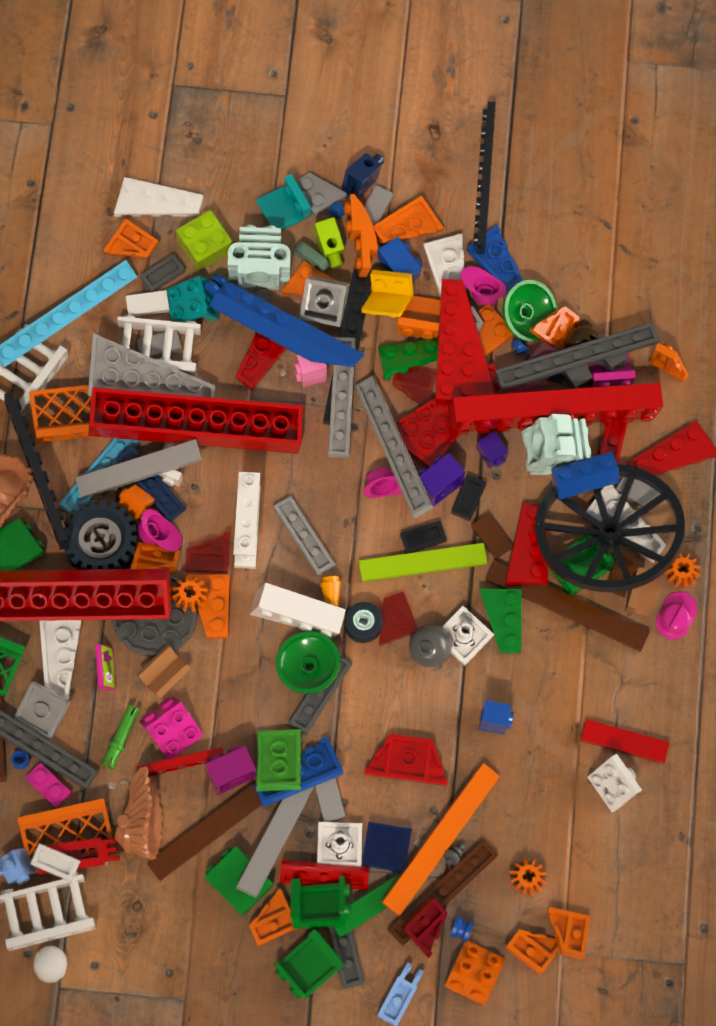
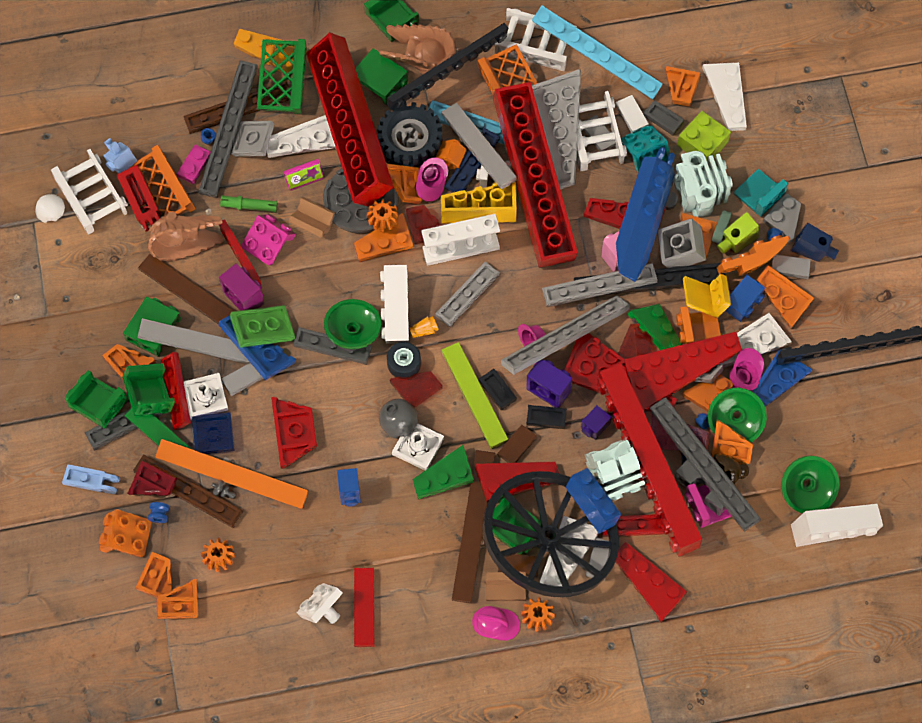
camera: 80 degrees right, 5 degrees down
(55, 862) = (127, 181): white tile -> none
(209, 488) = (480, 202): none -> yellow wedge
(622, 267) = (822, 485): none -> green dish
(668, 361) = (734, 547): orange wing -> none
(669, 258) = (836, 524): none -> white wedge

